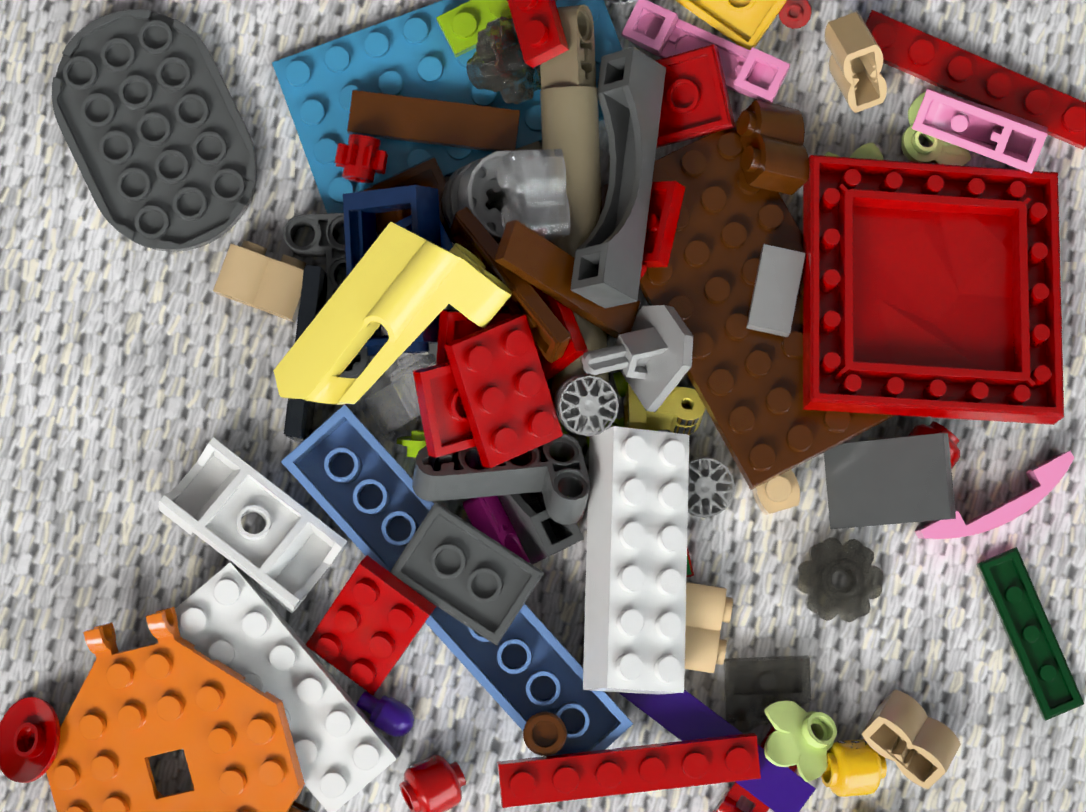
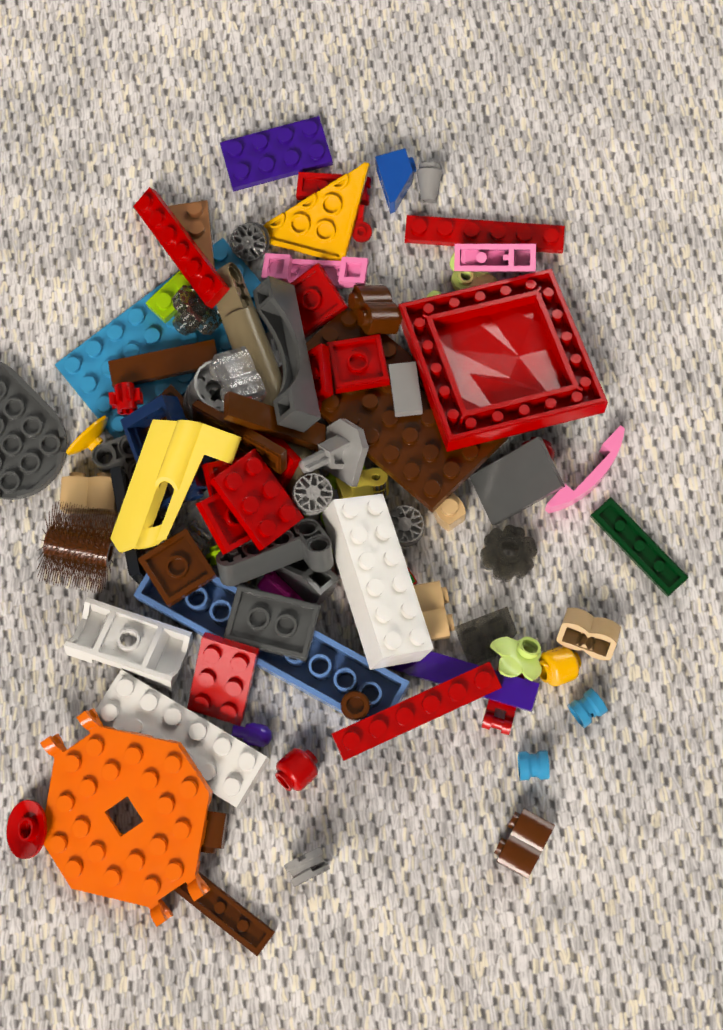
camera: 10 degrees left, 10 degrees down
(223, 363) = (78, 547): none -> reddish brown piece
(290, 201) = (89, 438): none -> yellow dish
(356, 446) = (177, 567): none -> reddish brown plate
(720, 225) = (358, 364): none -> red tile
(855, 62) = (406, 243): tan brick -> none

